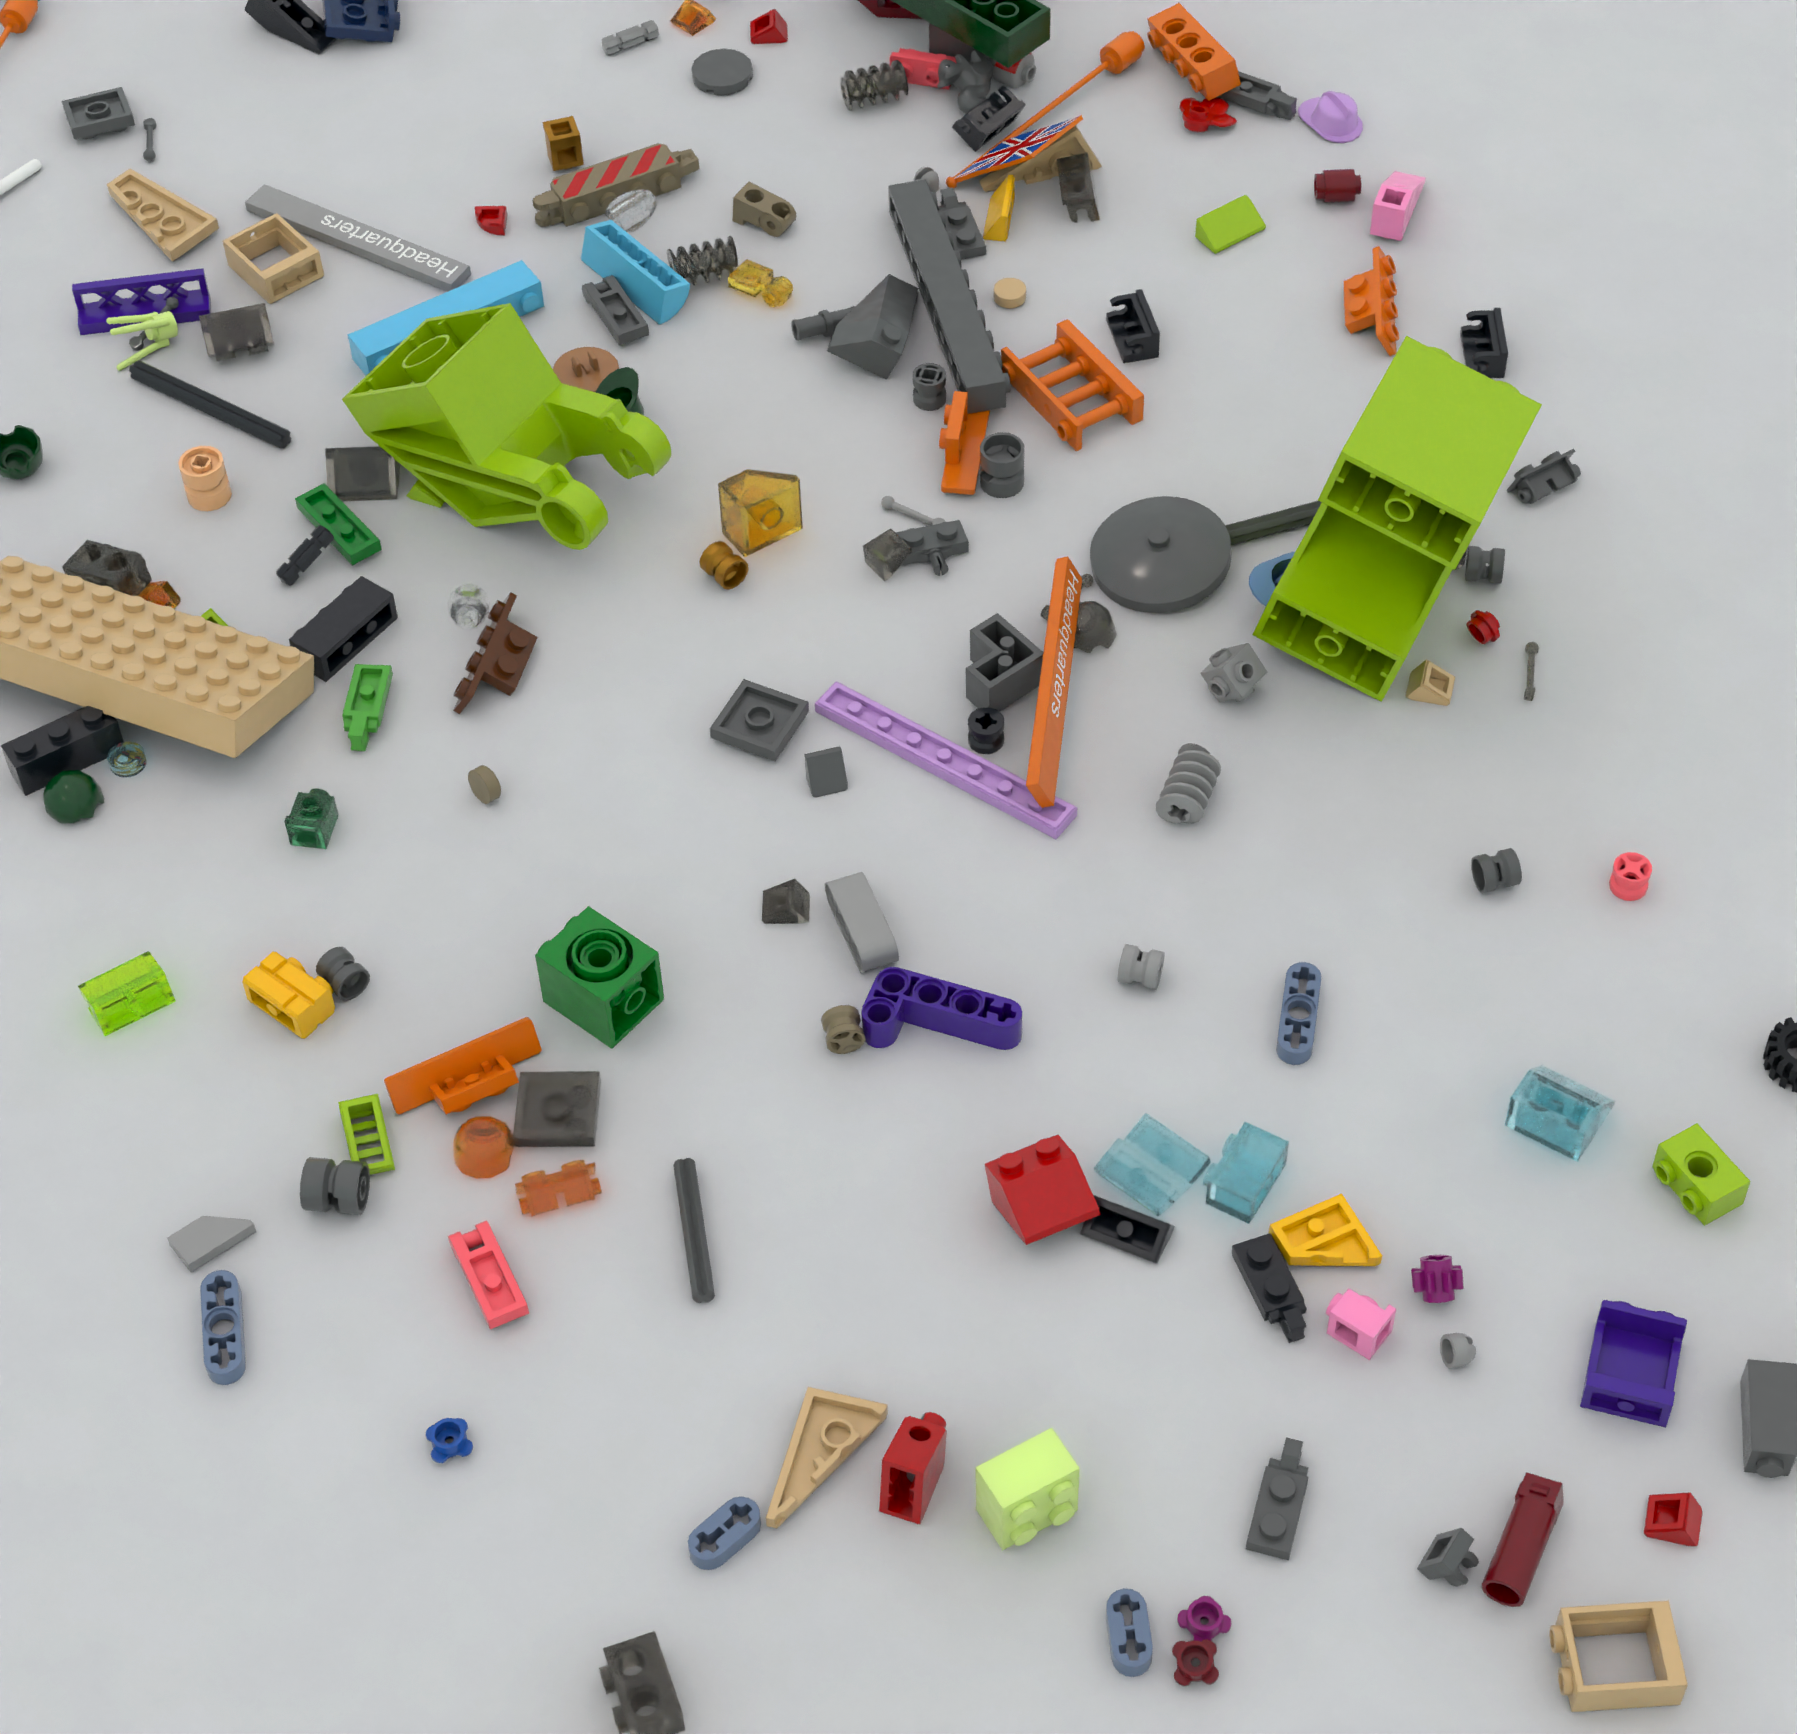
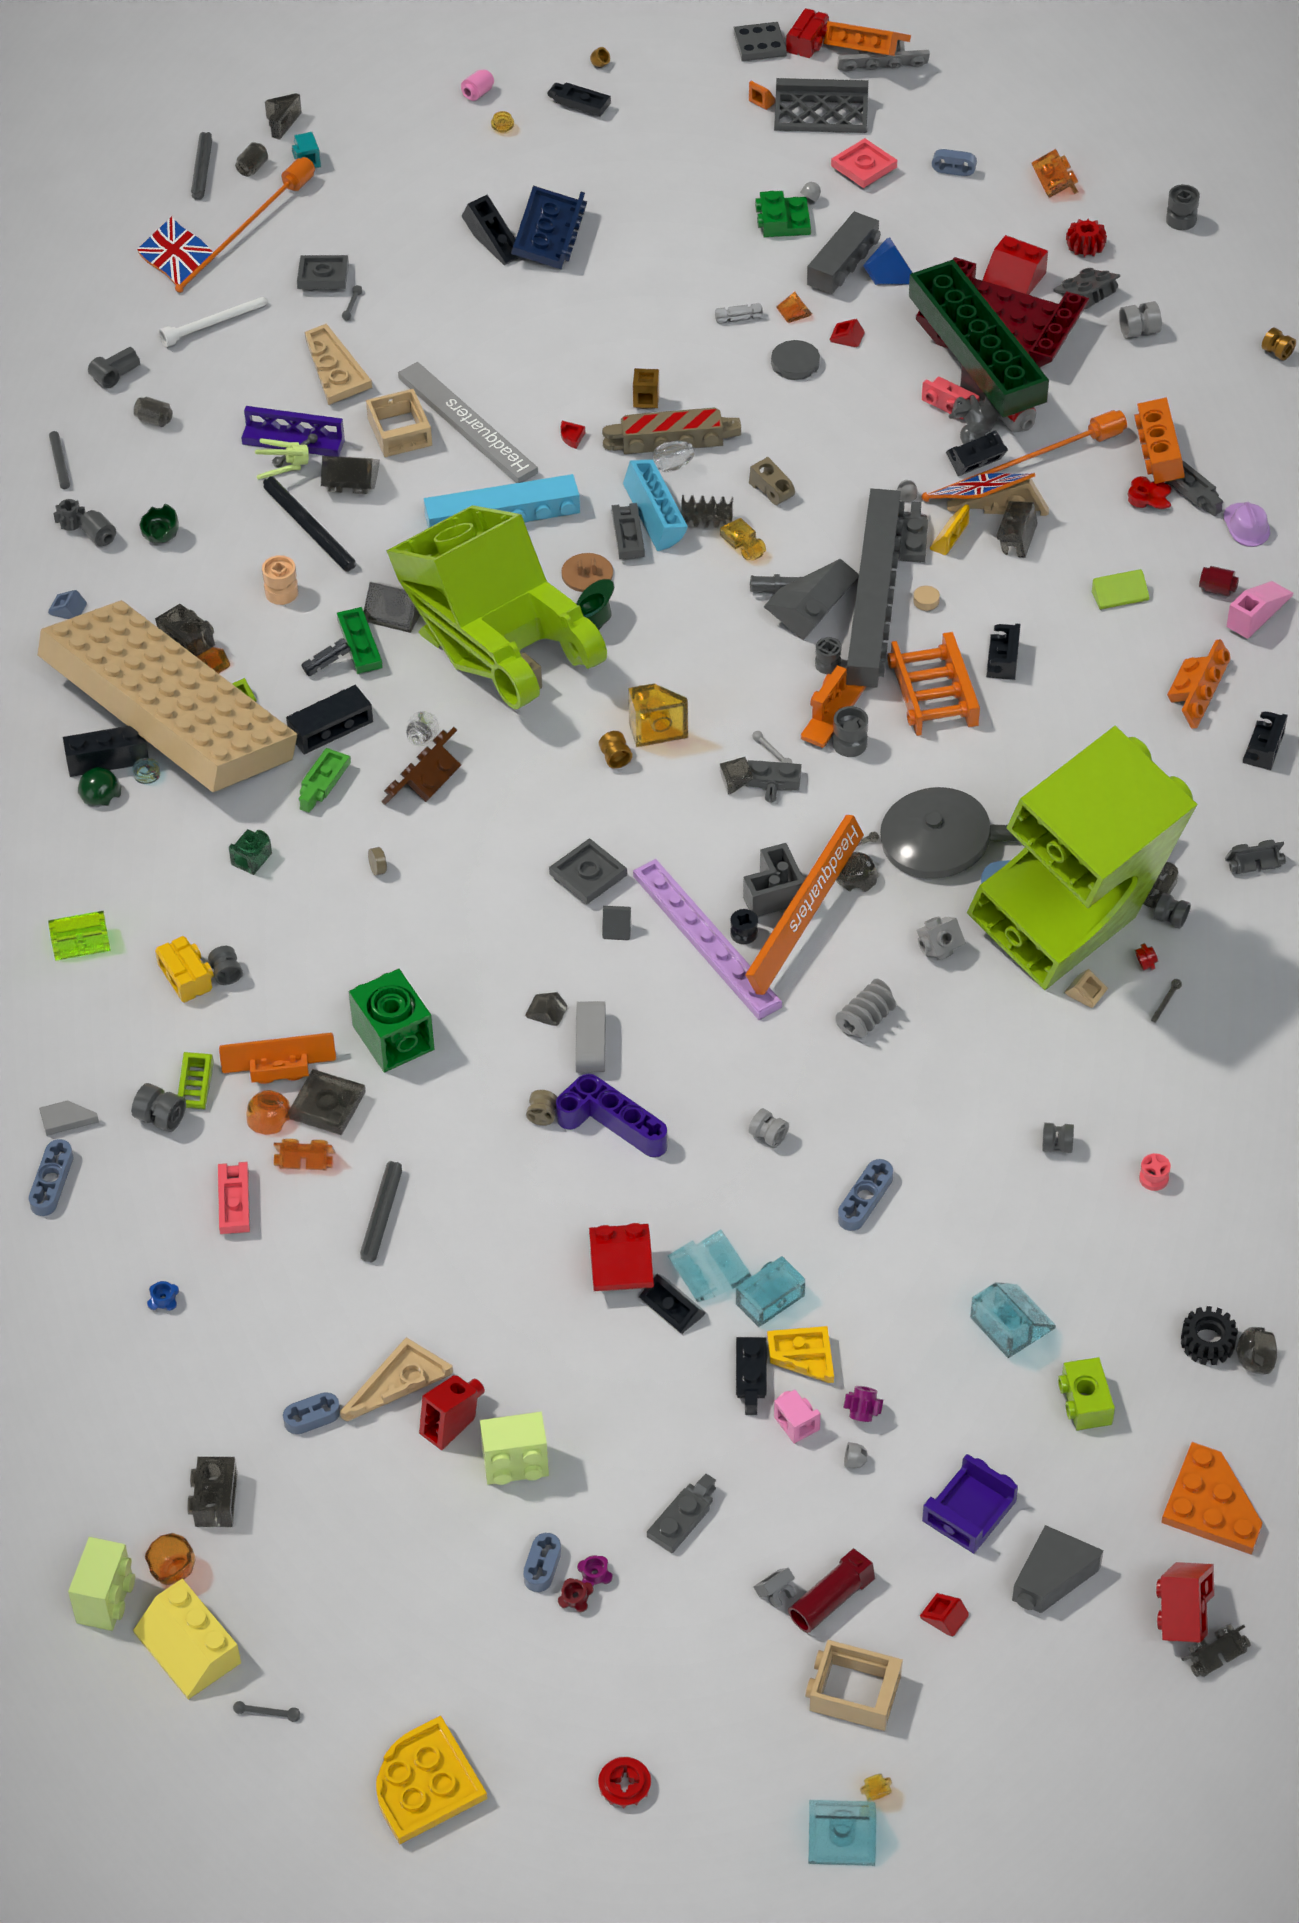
camera: 20 degrees right, 0 degrees up
(873, 83) = (901, 402): clear smoke piece -> none

